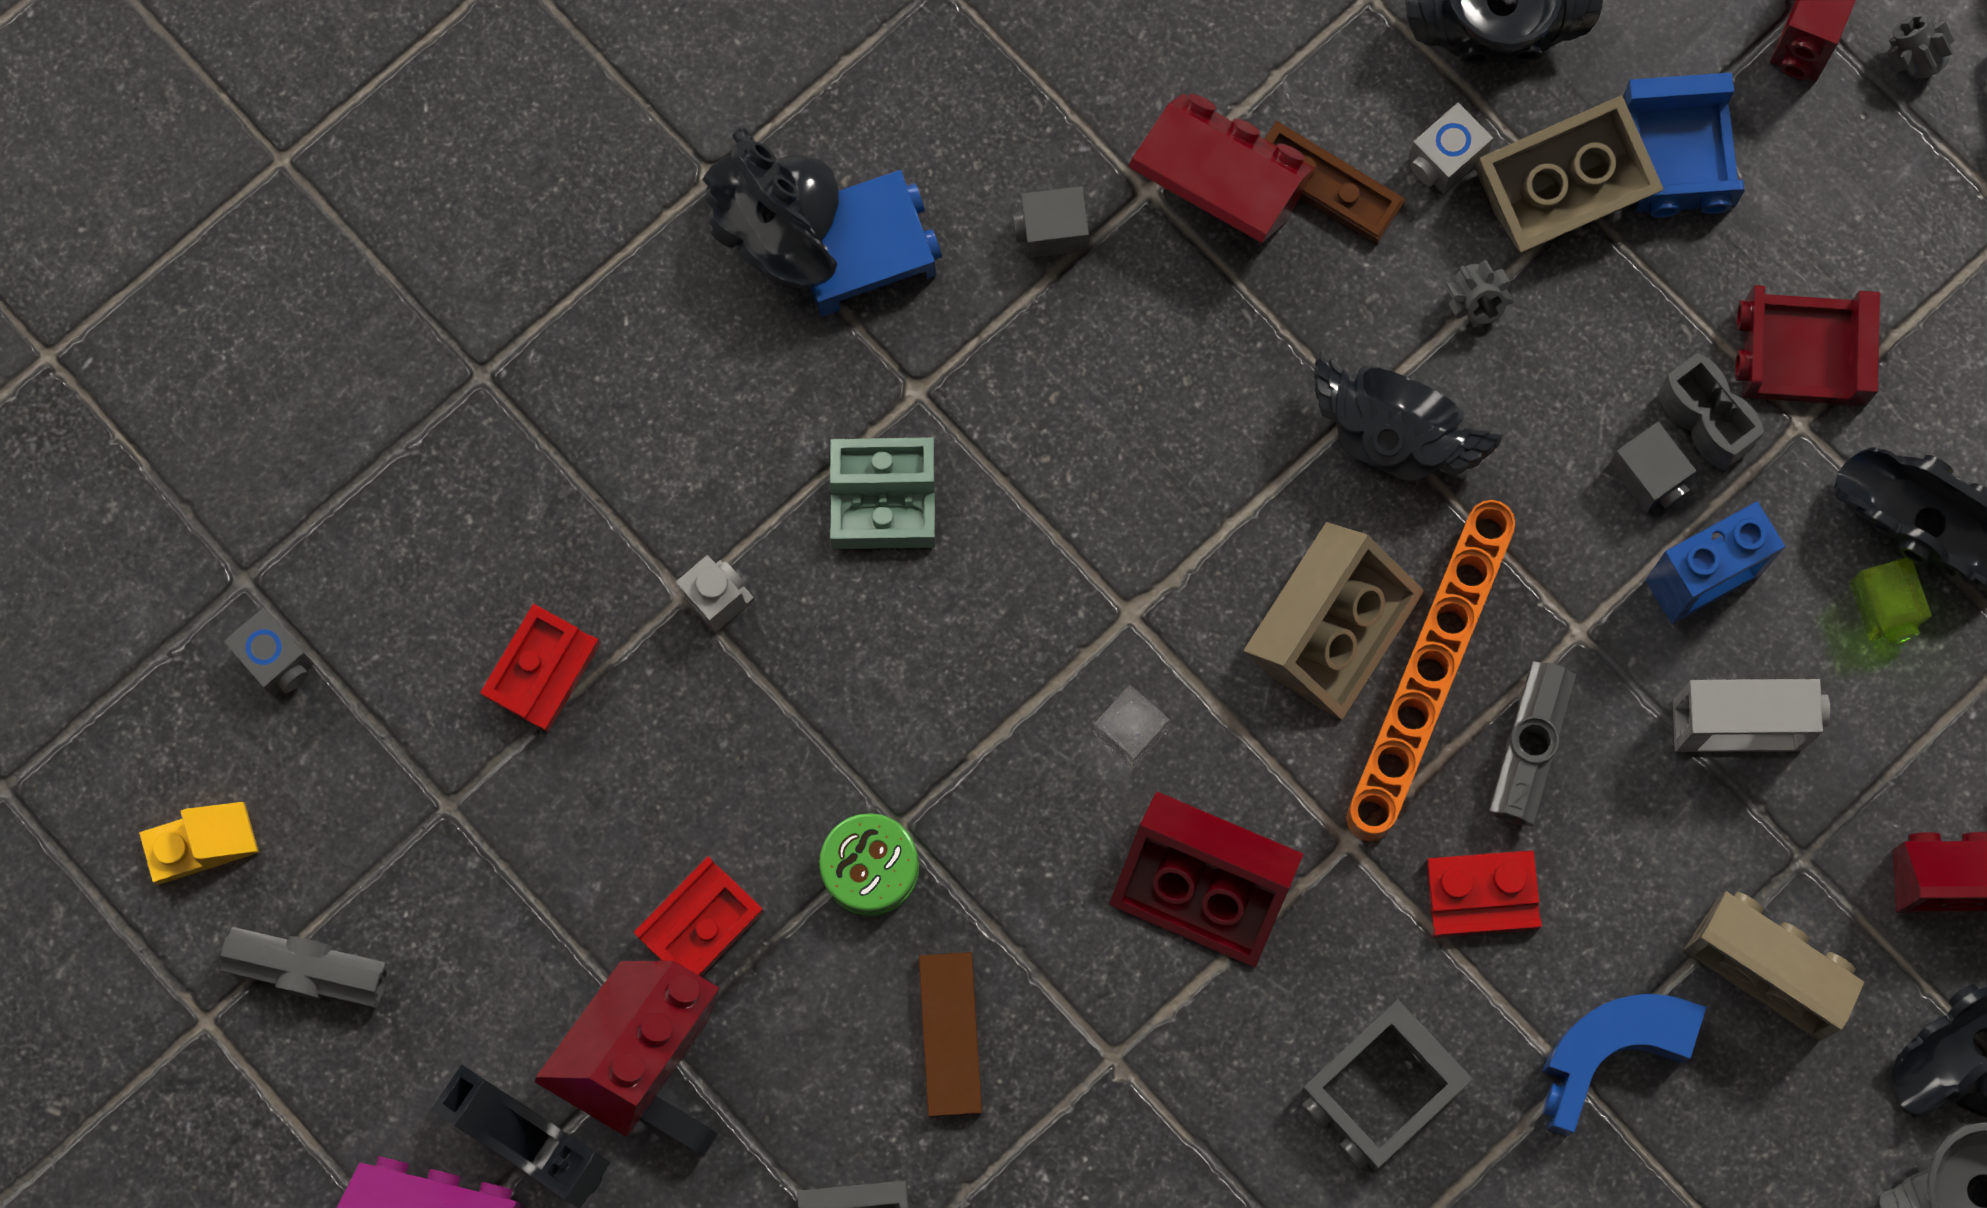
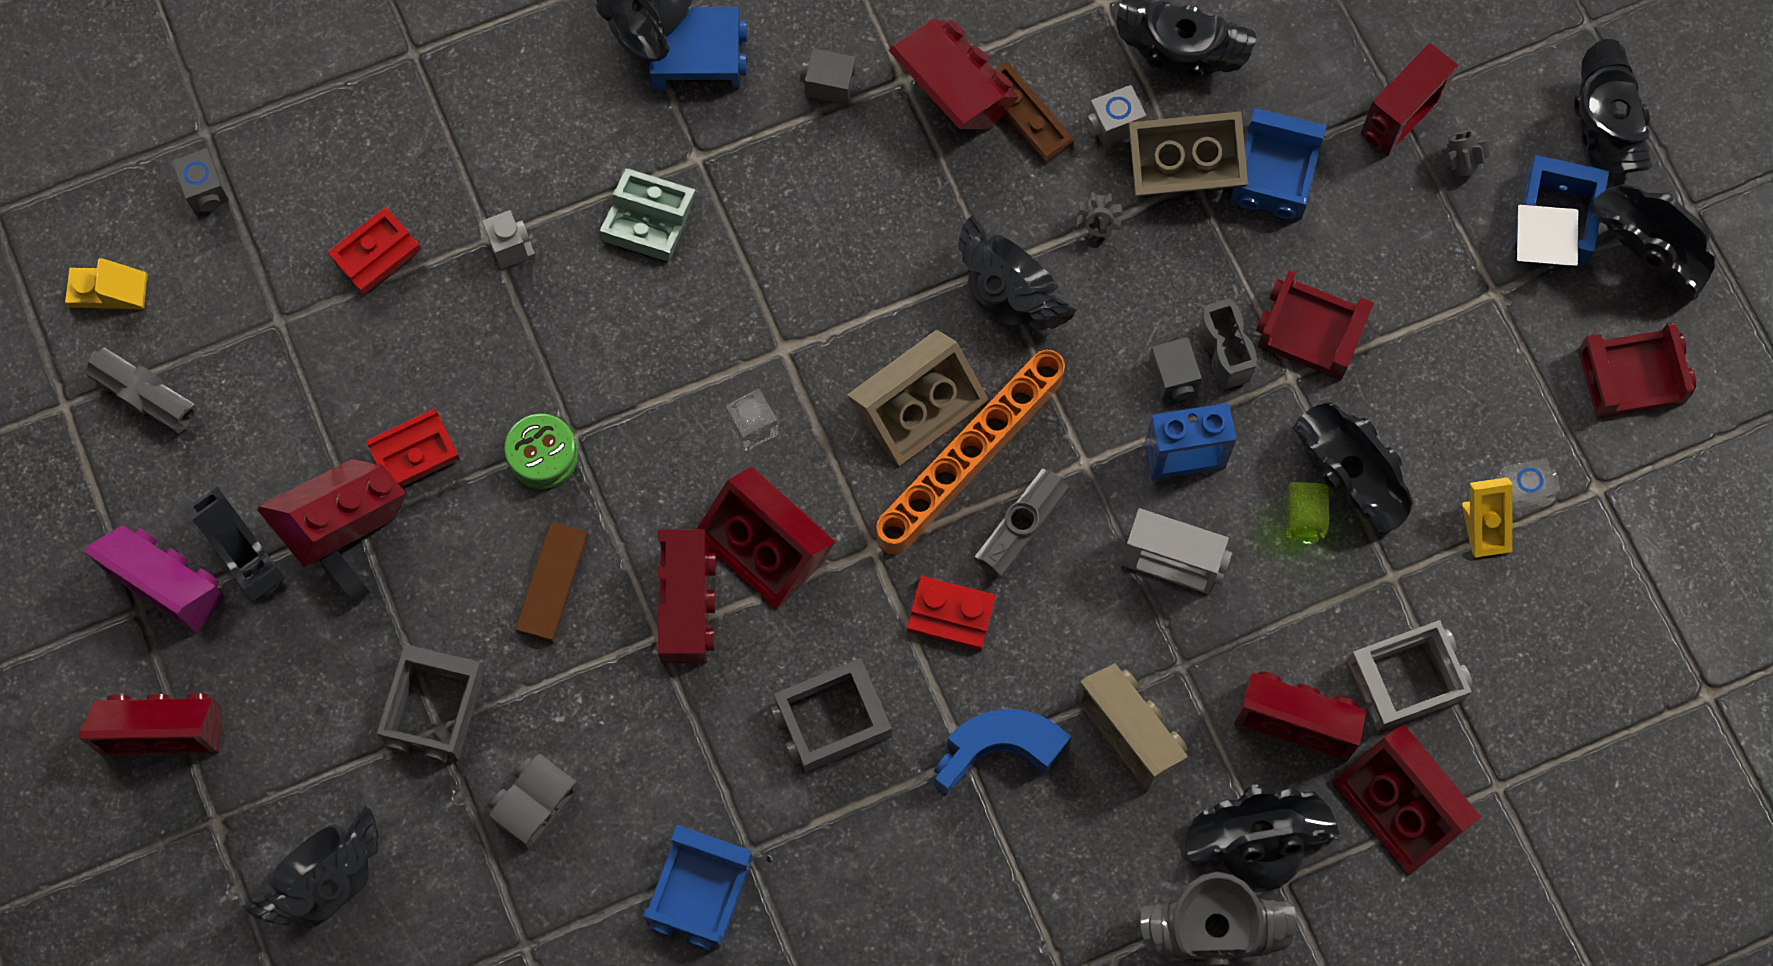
camera: 15 degrees right, 5 degrees down
(1137, 997) = (685, 596): none -> dark red wedge

